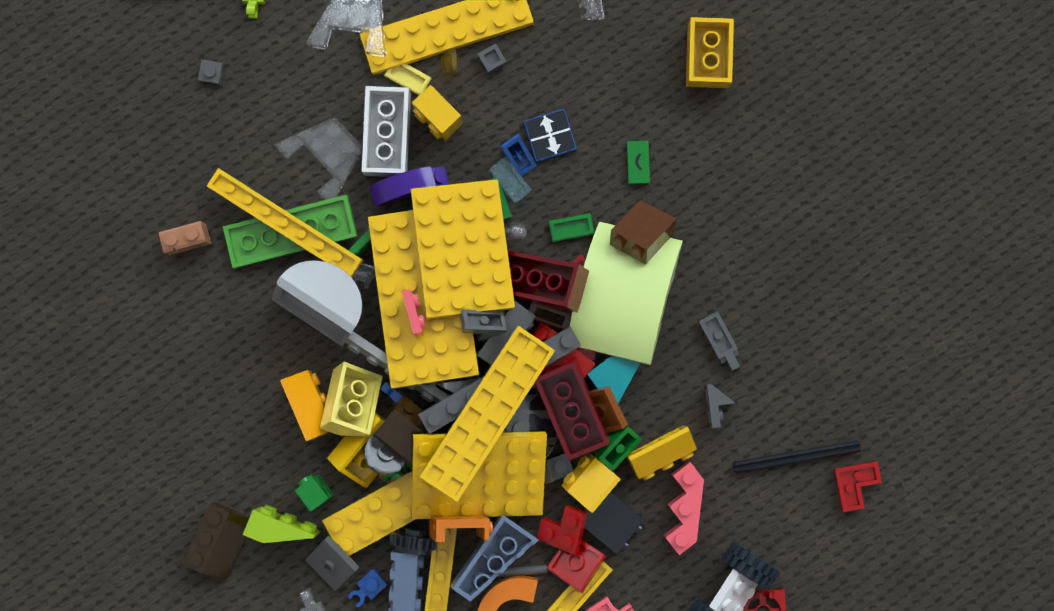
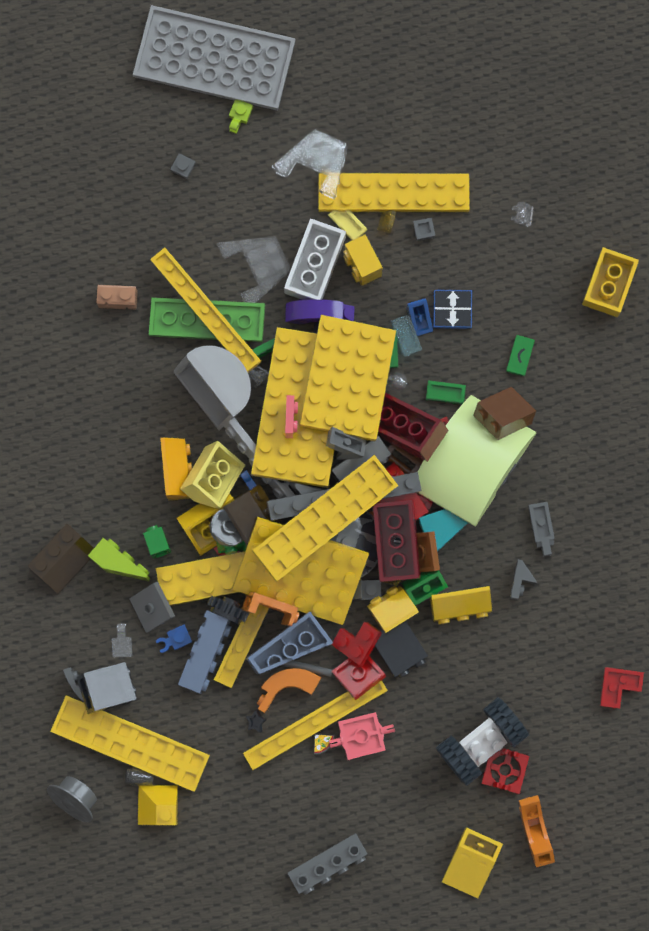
camera: 20 degrees right, 5 degrees down
(686, 508) = (466, 658): coral brick -> none
(797, 456) = (577, 647): black axle -> none

